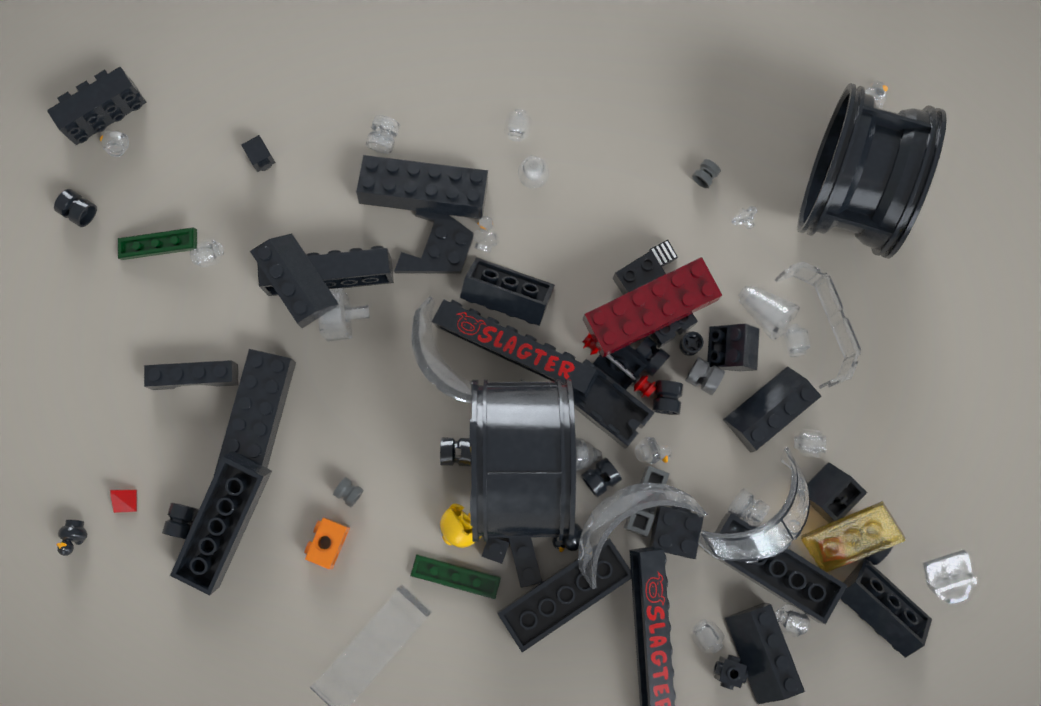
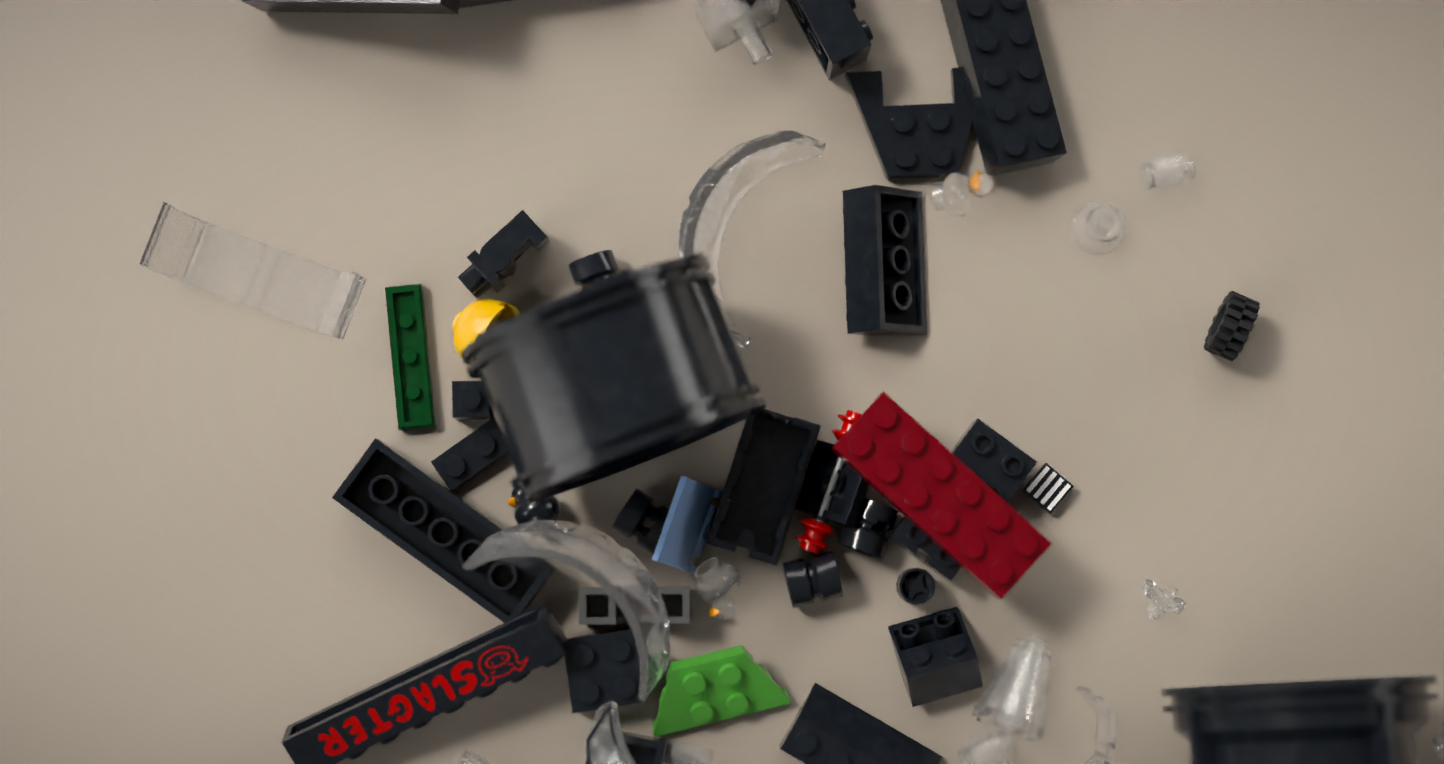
camera: 70 degrees right, 5 degrees up
(337, 535) = (404, 153): orange brick -> none
(350, 493) = (473, 146): dark grey wheel -> none
(419, 500) = (500, 254): none -> black hips
(514, 347) = (794, 308): black brick -> none
(586, 454) = (663, 474): clear helmet -> none
(612, 454) = (686, 524): none -> light blue piece
(614, 123) = (1231, 326): none -> black tyre
(705, 376) = (870, 626): flat silver wheel -> none
(706, 173) = (1210, 508): dark grey wheel -> none
(709, 475) = (714, 690): none -> bright green wing

